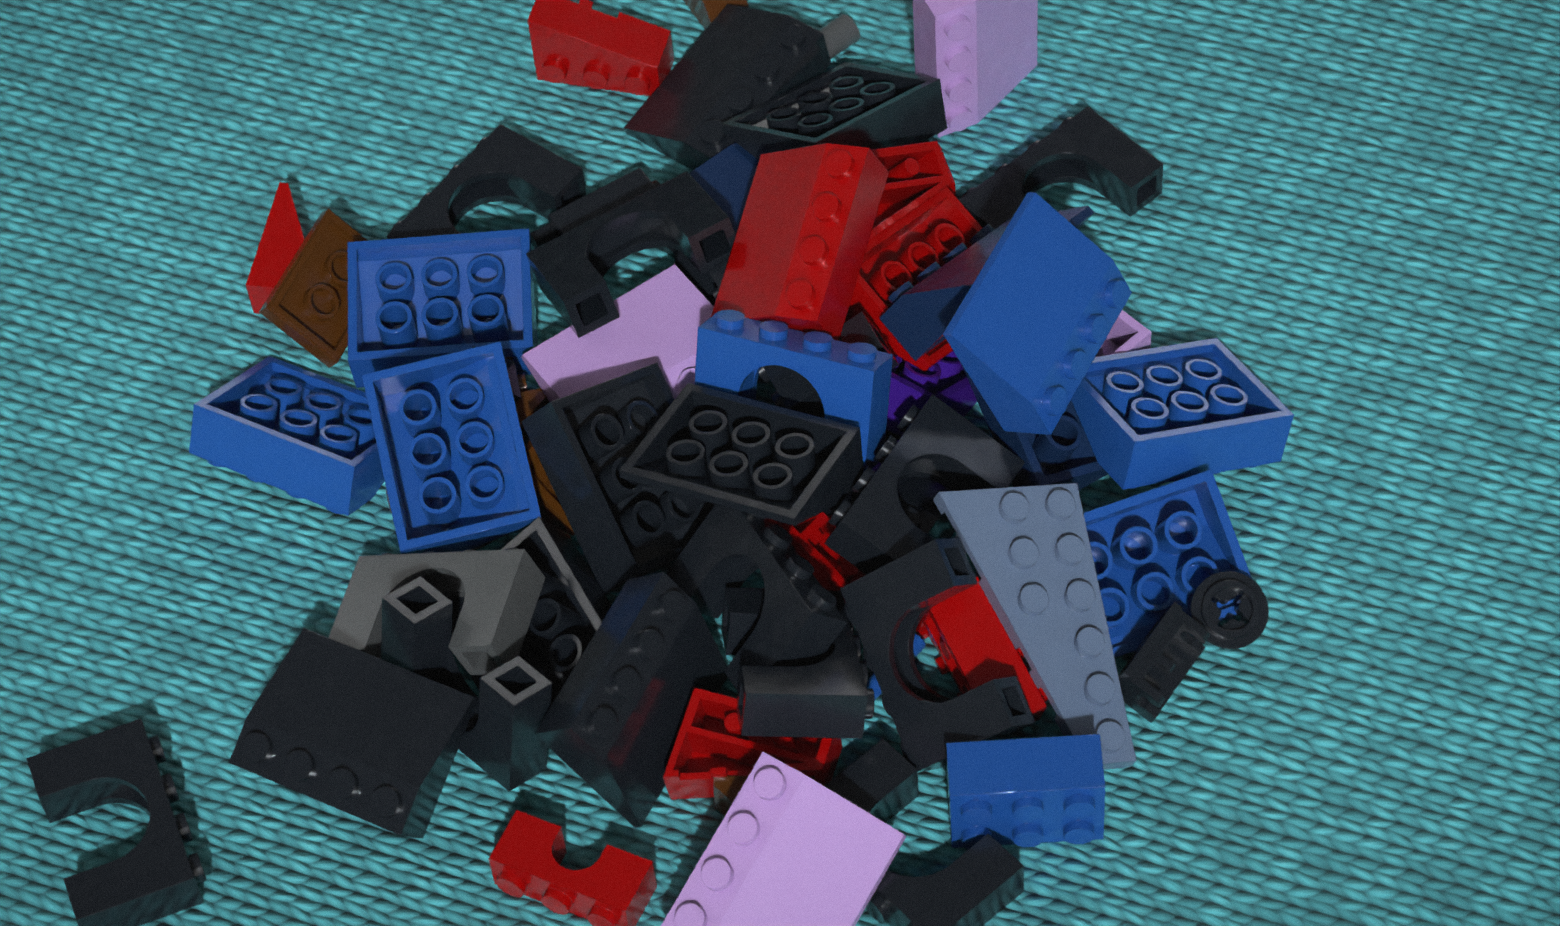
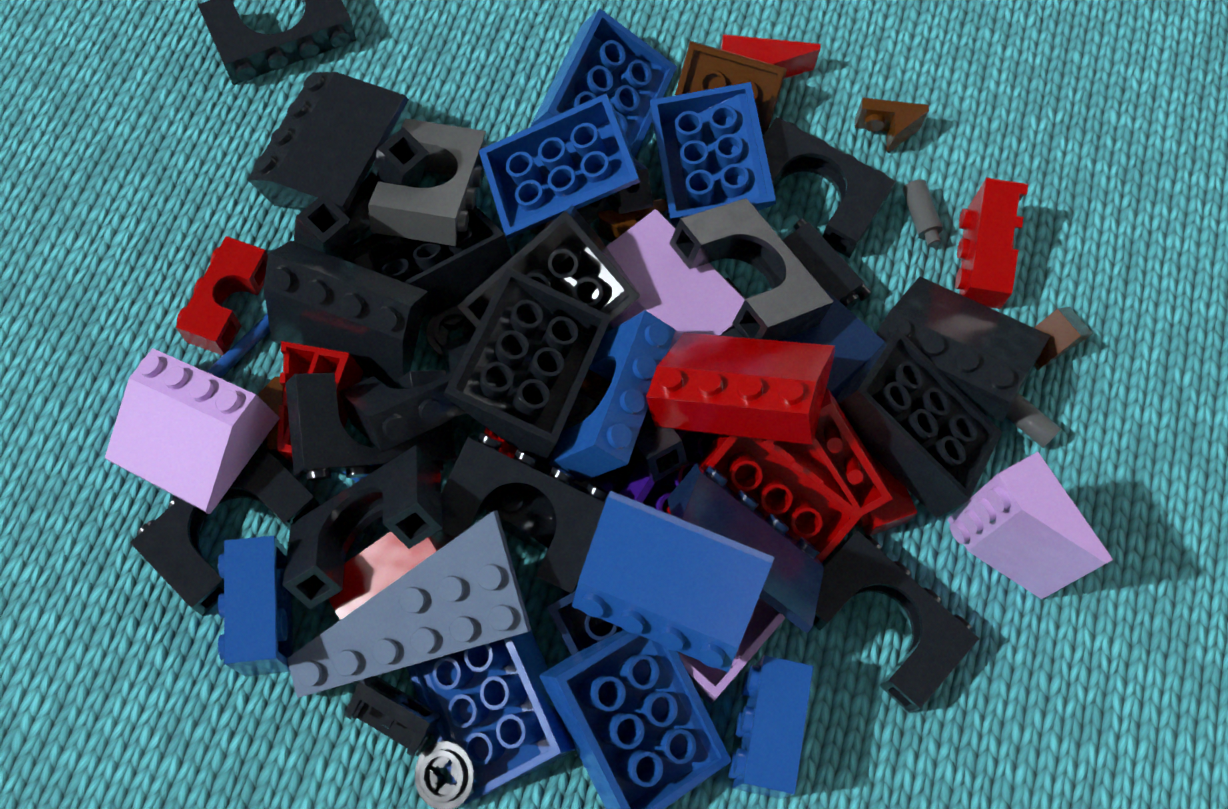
camera: 75 degrees right, 15 degrees up
(401, 124) = (894, 117): none -> reddish brown slope
(538, 112) = (923, 211): none -> dark grey cylinder
(629, 842) = (241, 348): none -> blue bar
(1188, 289) = (771, 727): none -> blue brick

